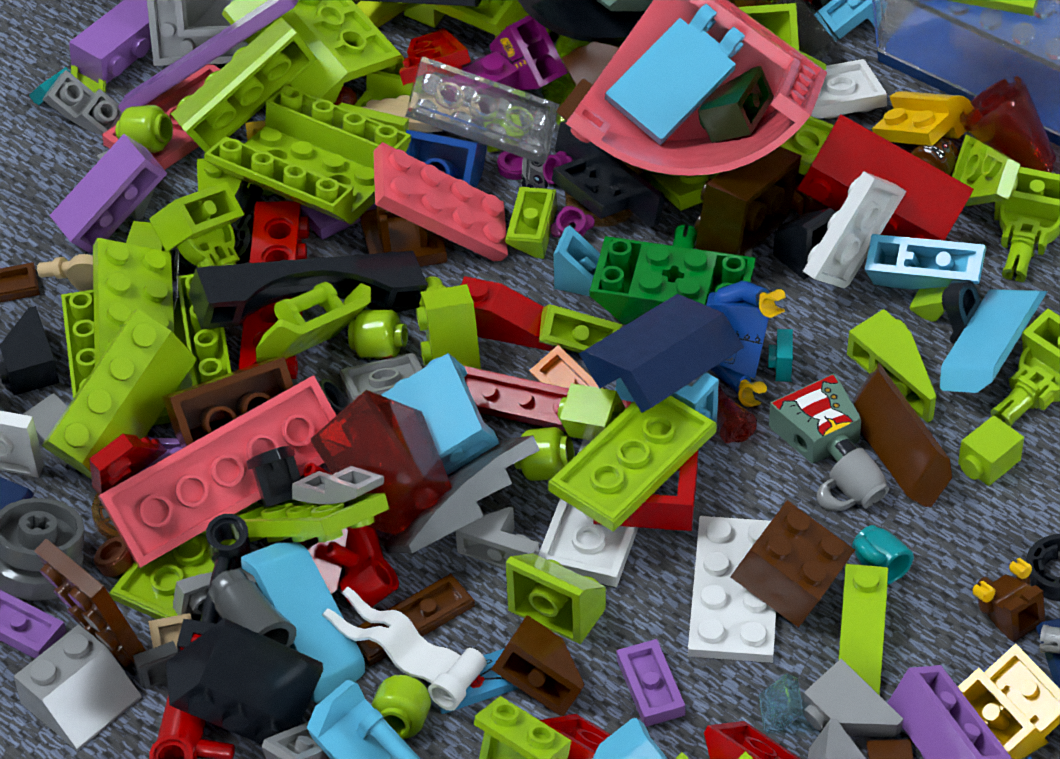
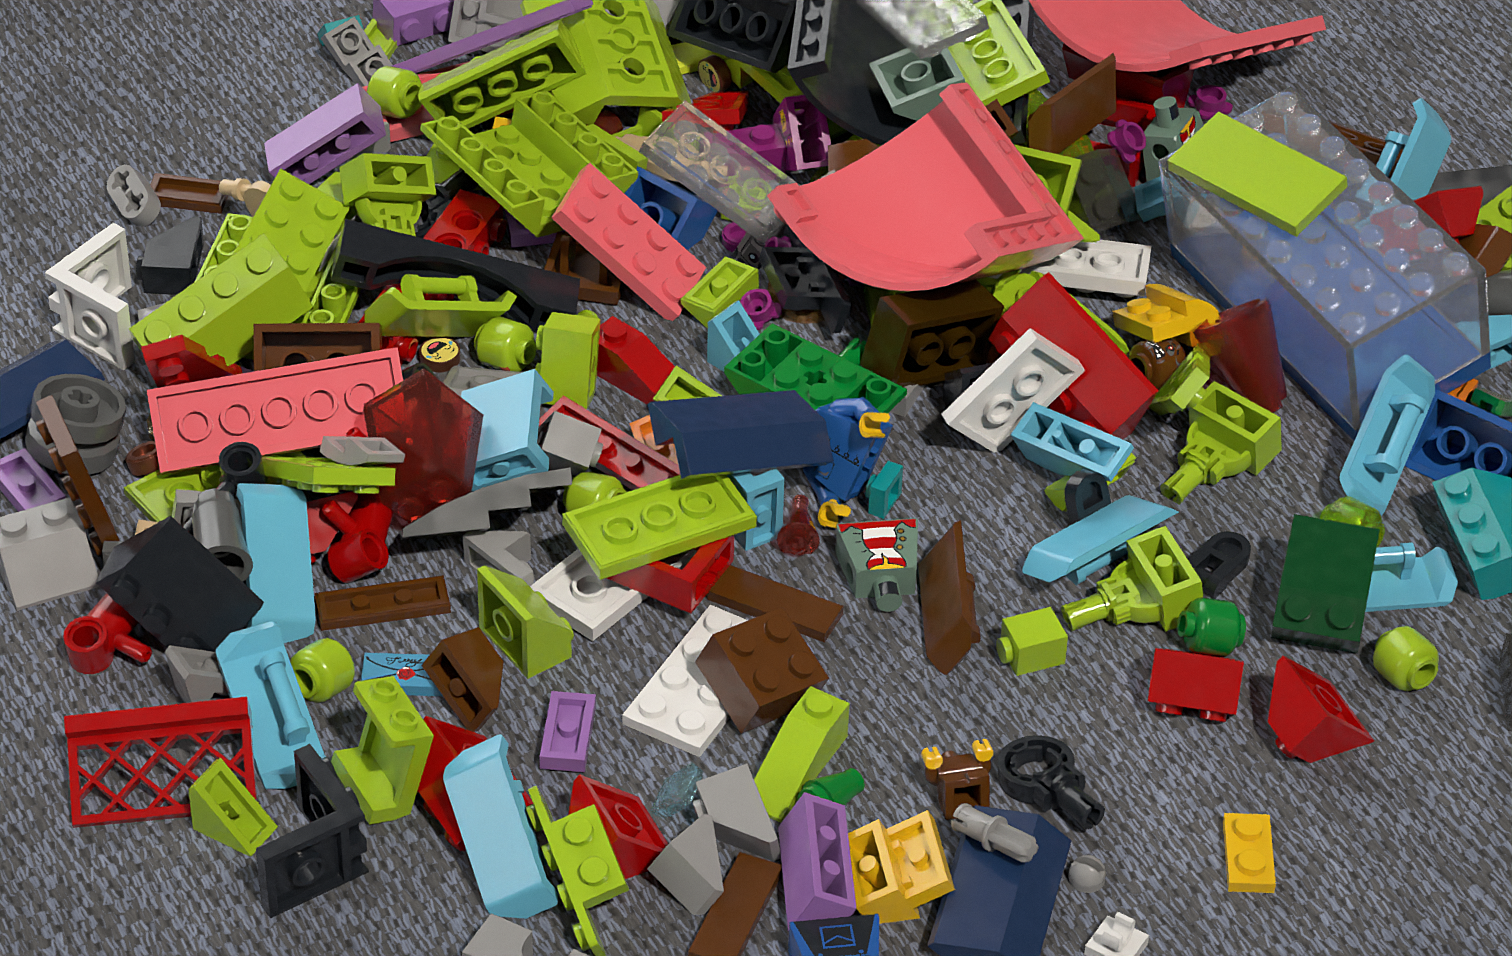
camera: 20 degrees right, 5 degrees down
(275, 474) = (320, 419): black tile -> none
(320, 361) = (440, 353): none -> tile
(406, 21) = (714, 73): none -> tile
(412, 653) = (357, 626): white flag -> none
(505, 409) = (569, 443): none -> light grey slope
(588, 410) = (644, 465): lime brick -> none
(675, 75) = (915, 189): medium azure tile -> none
(736, 106) = (947, 245): dark green slope -> none
(752, 492) = (760, 595): none -> reddish brown tile
(857, 478) = (883, 621): light grey piece -> none
(883, 549) = (864, 692): teal piece -> none
(891, 344) = (990, 522): lime slope -> none
(908, 653) = (836, 787): none -> green cone

